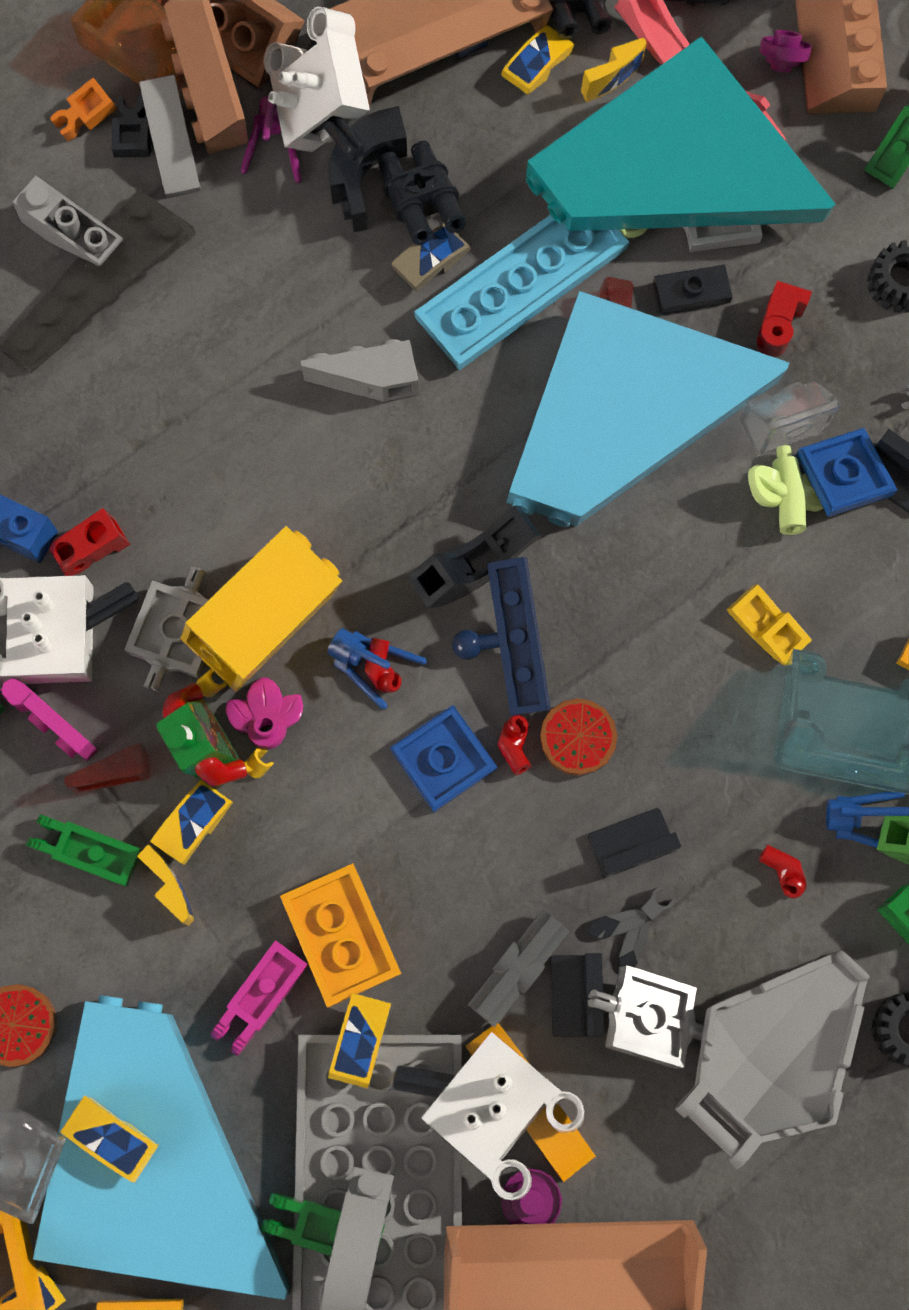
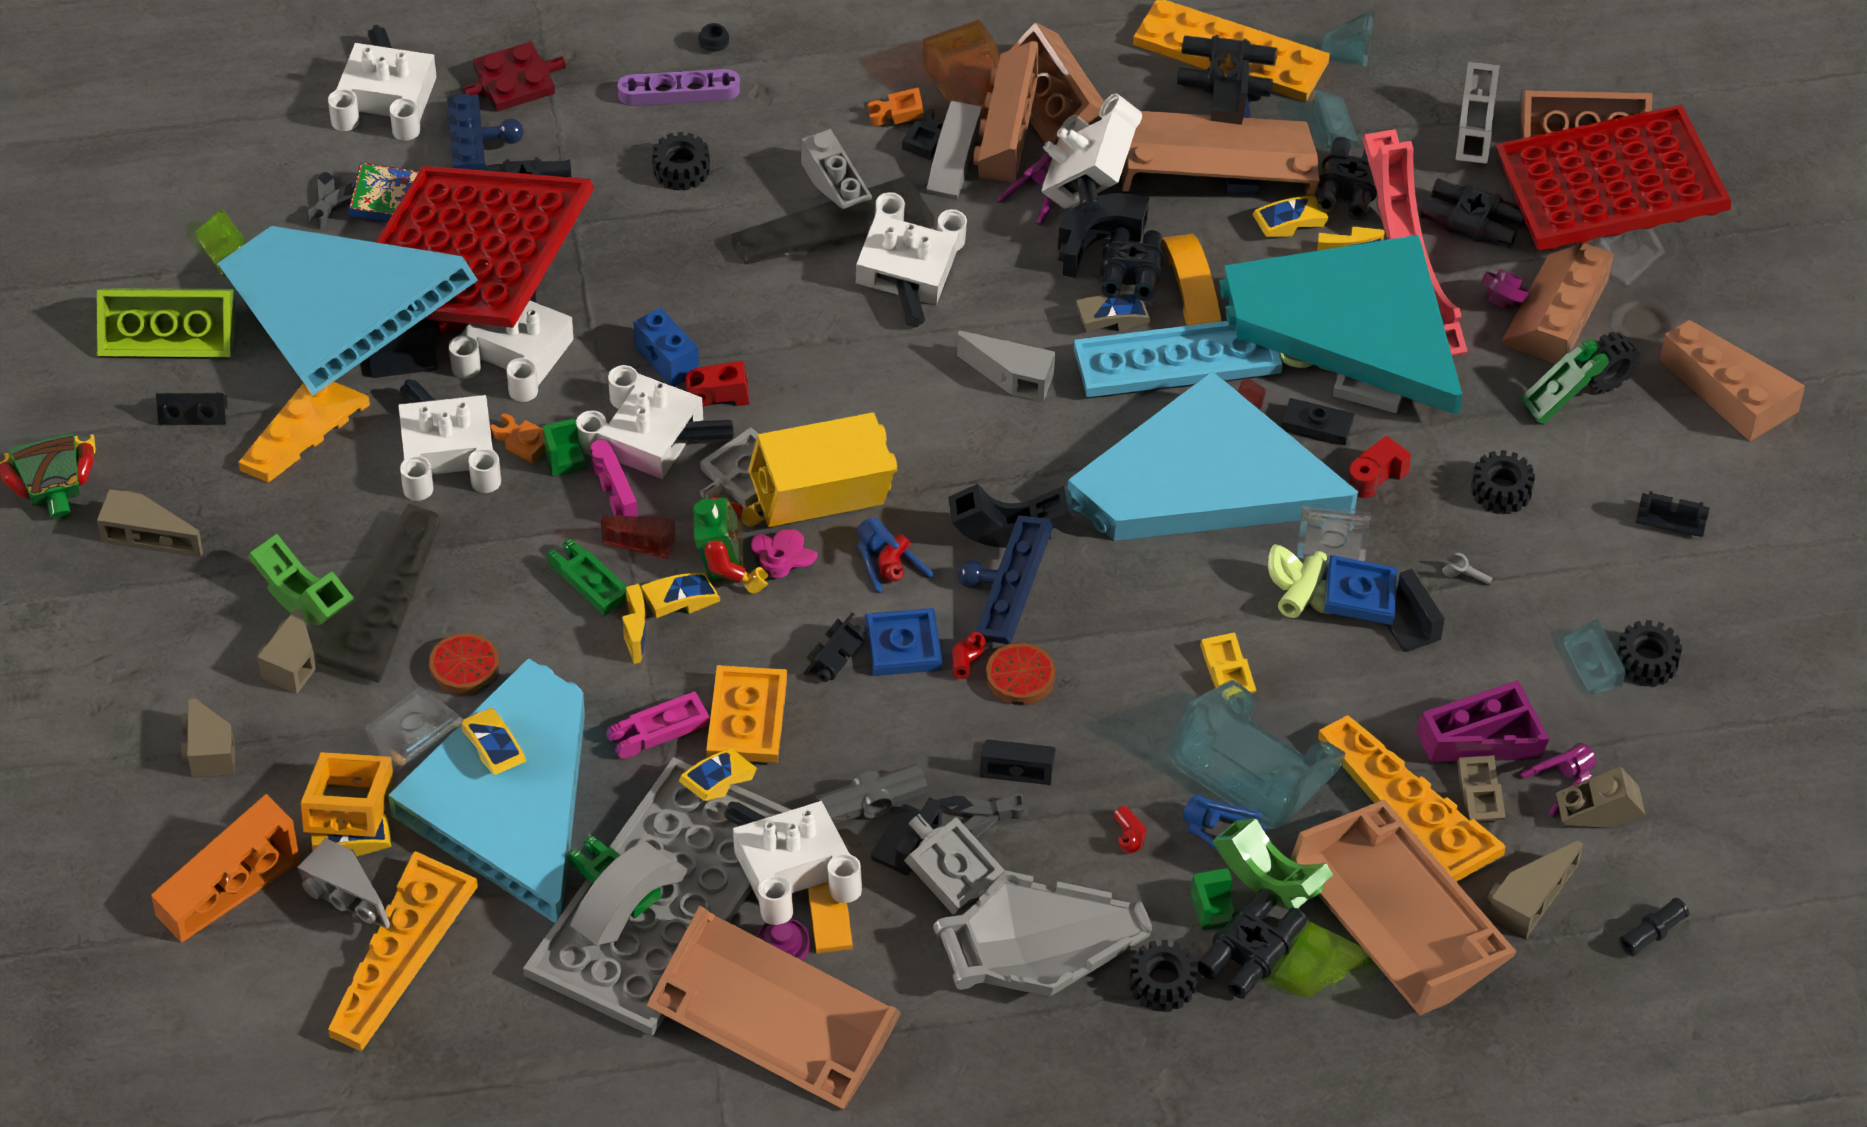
camera: 30 degrees right, 25 degrees down
(197, 291) = (909, 257): none -> white piece
(383, 788) = (843, 638): none -> black hinge
(487, 178) = (1193, 278): none -> light orange slope

